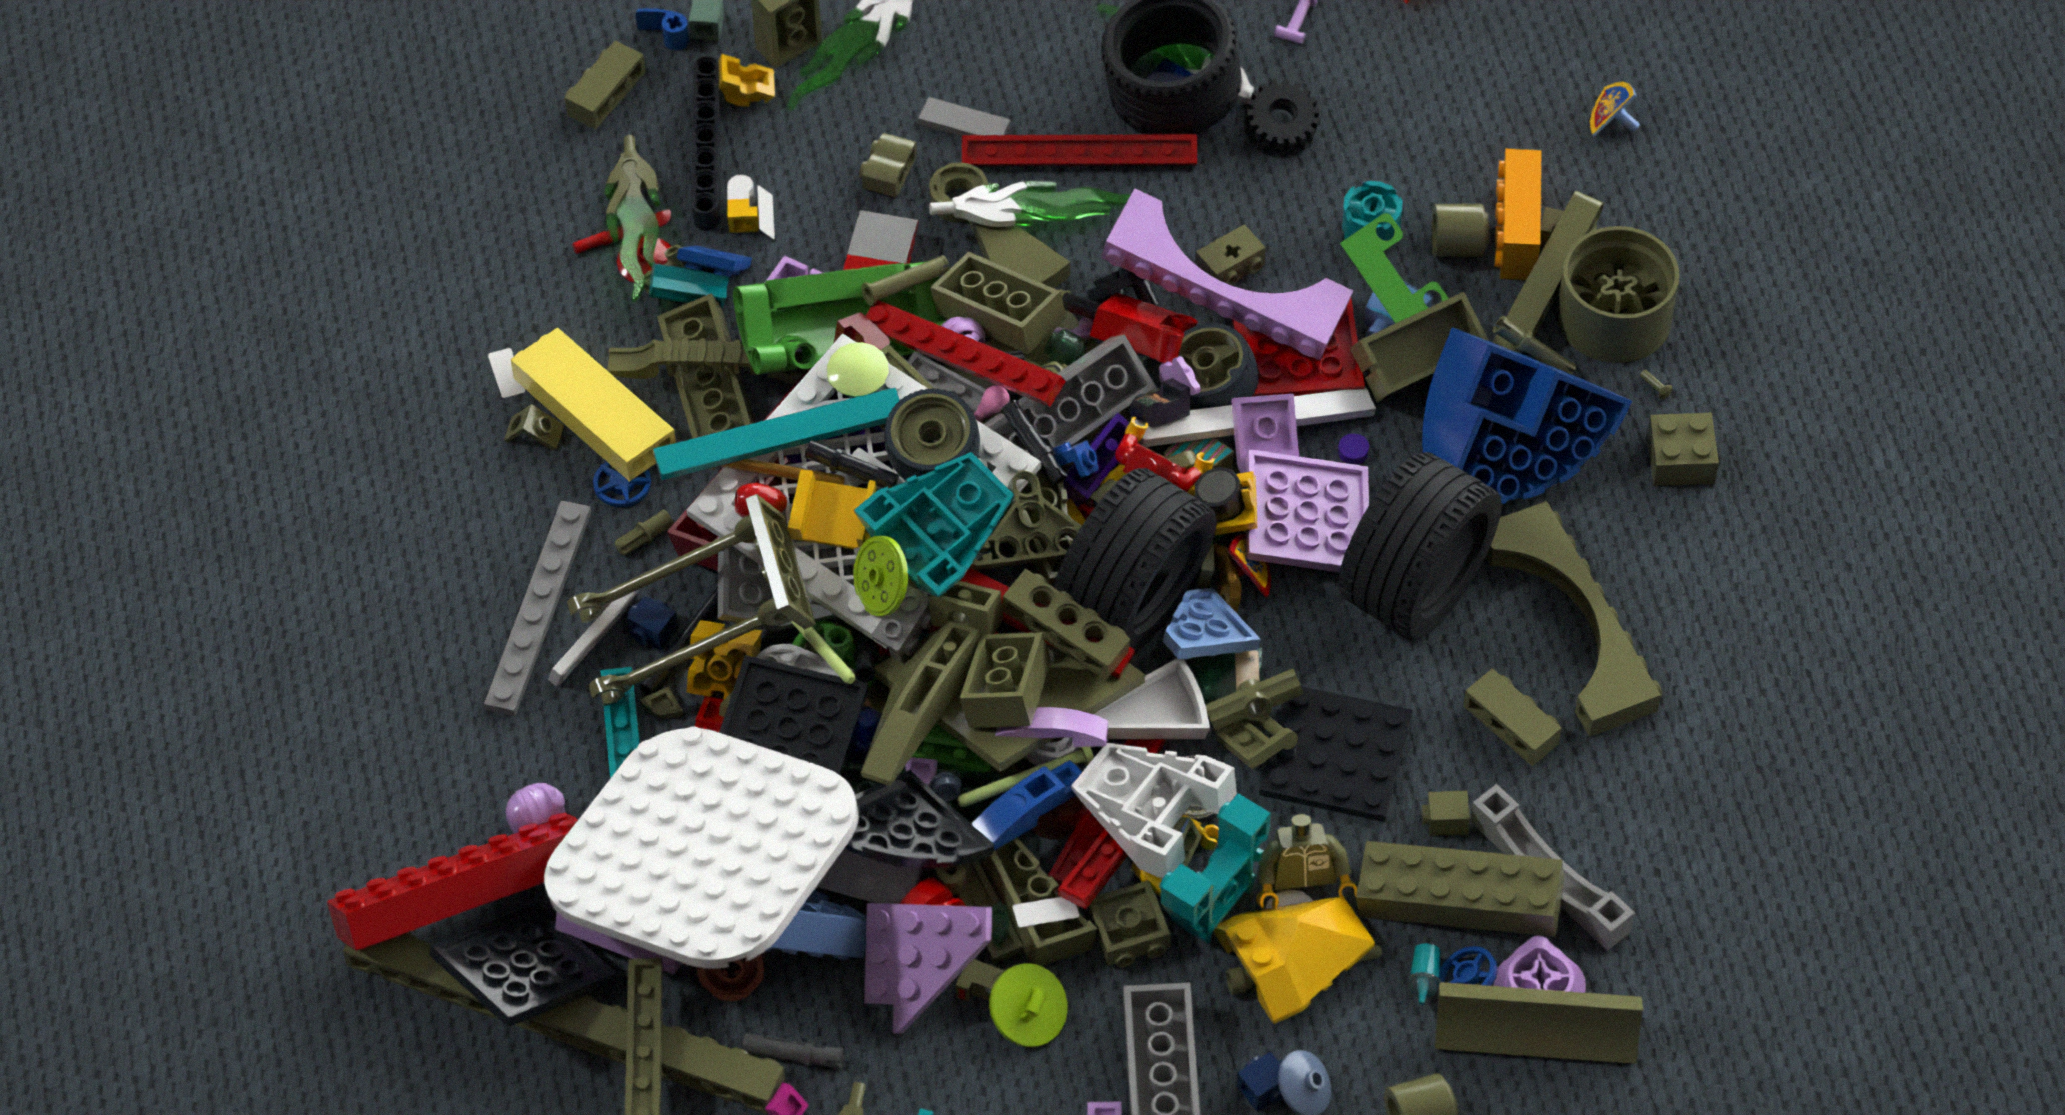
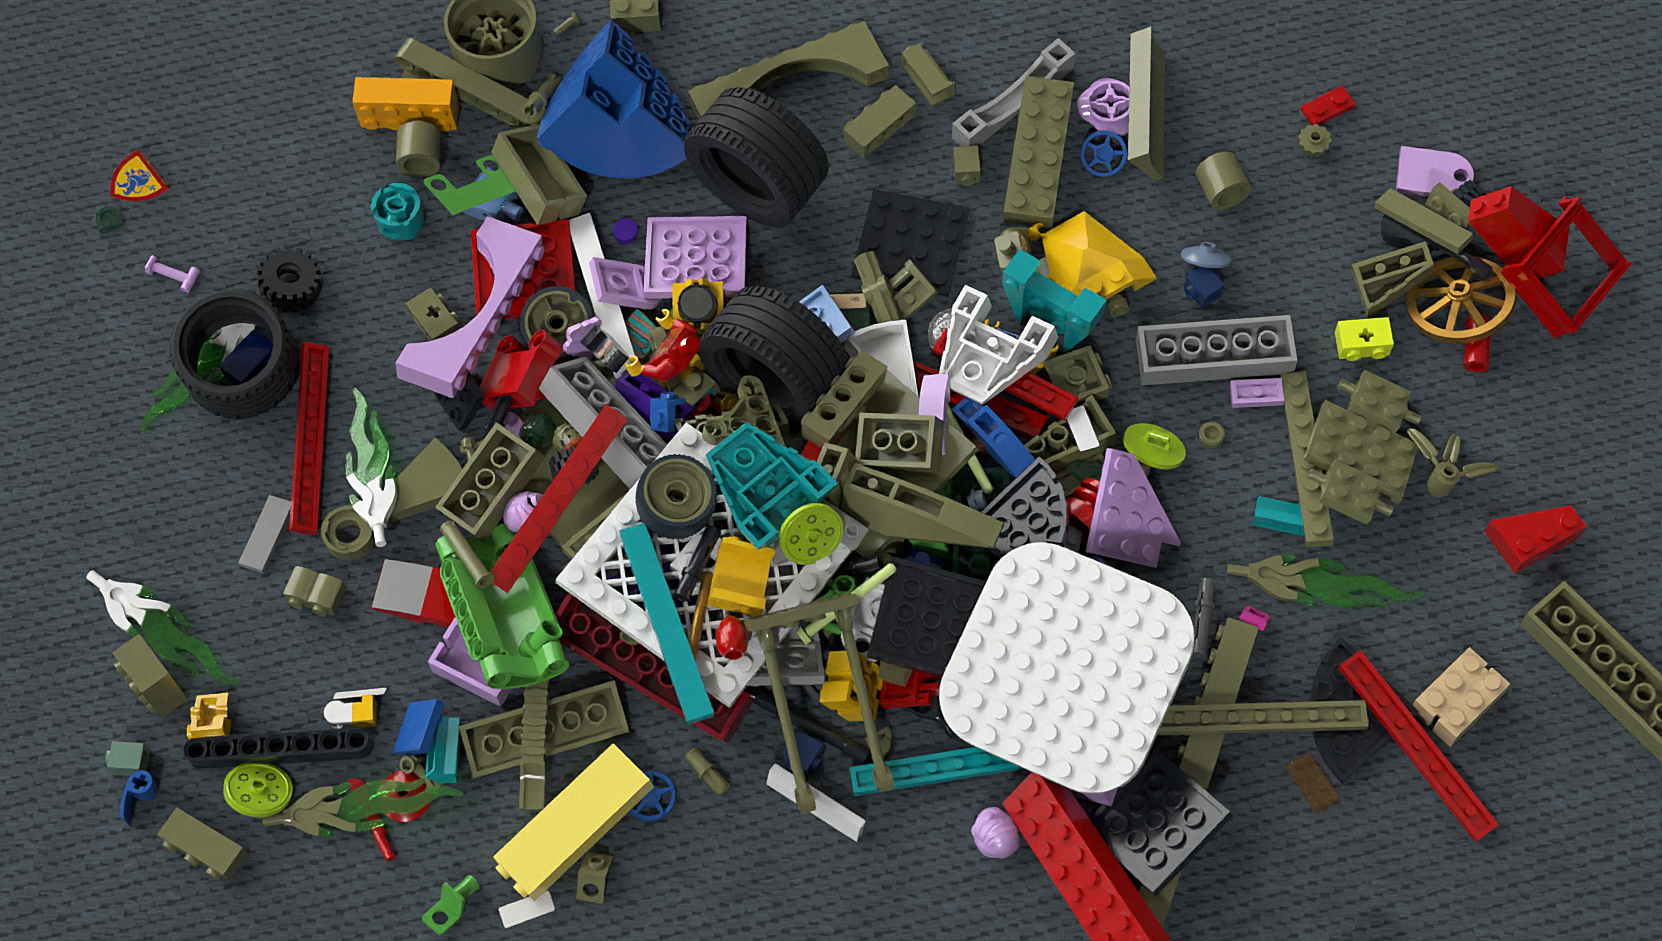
camera: 90 degrees left, 10 degrees up
(517, 300) = (451, 904): none -> bright green bracket
(537, 608) = (783, 855): light grey plate -> none
(659, 125) = (257, 789): none -> lime shield
(857, 369) = (600, 561): yellowish green dish -> none
(861, 330) = (530, 584): leg -> none
(948, 380) = (573, 520): light grey tile -> none
(991, 402) = (604, 476): bright pink piece -> none
(1033, 442) = (667, 429): black pin -> none
(1049, 1081) = (1211, 434): none -> olive tile
(1425, 972) = (1103, 182): piece -> none
(1588, 771) = (927, 74): none -> olive window
(1612, 104) = (293, 41): shield -> none

